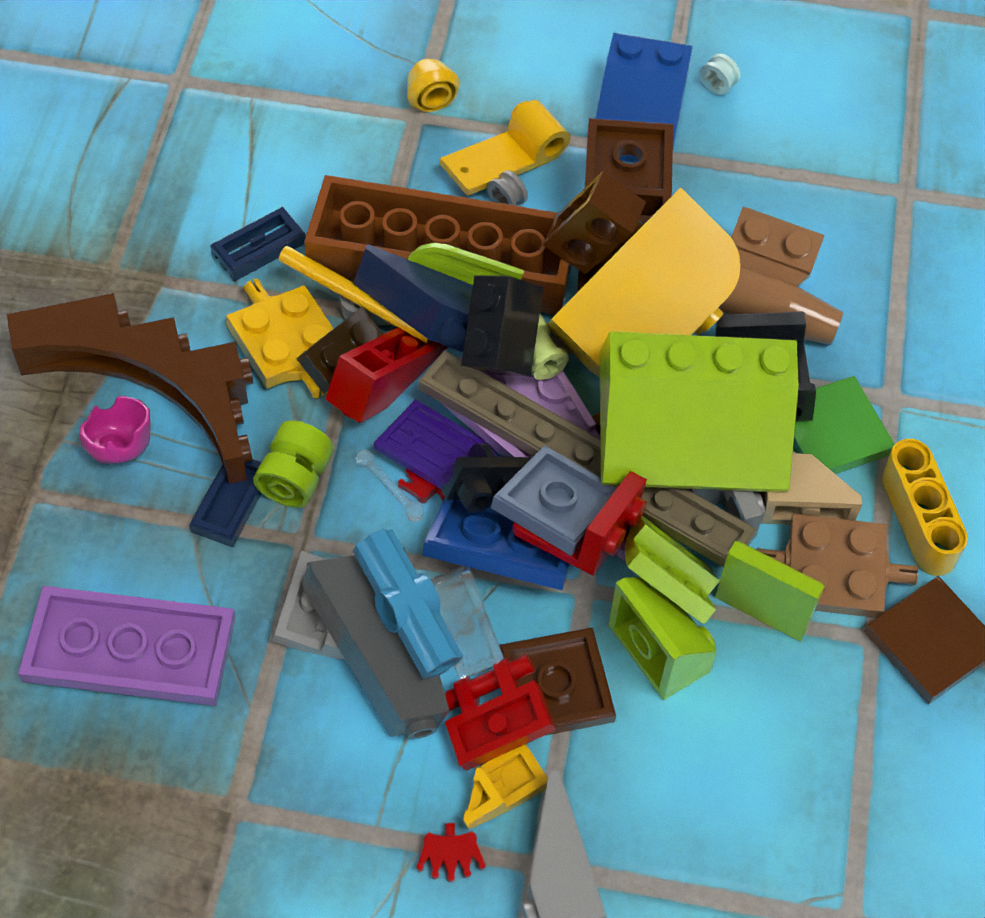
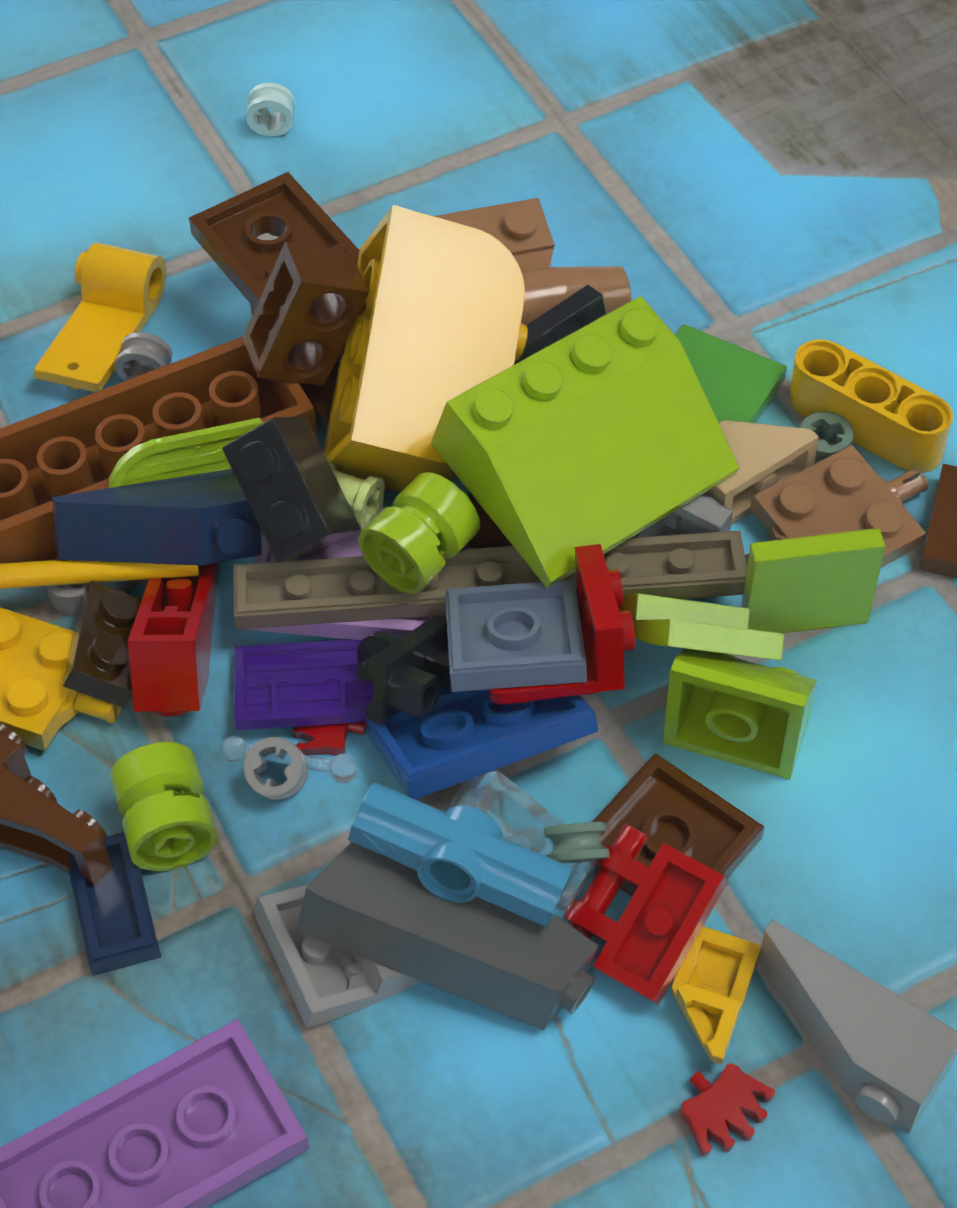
camera: 35 degrees left, 5 degrees down
(366, 474) = (256, 764): none -> light grey bush
(484, 644) = (577, 842): none -> sand green bush
(553, 401) = (423, 528): none -> lime wheel
(644, 82) = (194, 161): blue slope -> none
(889, 506) = (830, 429): none -> sand green bush

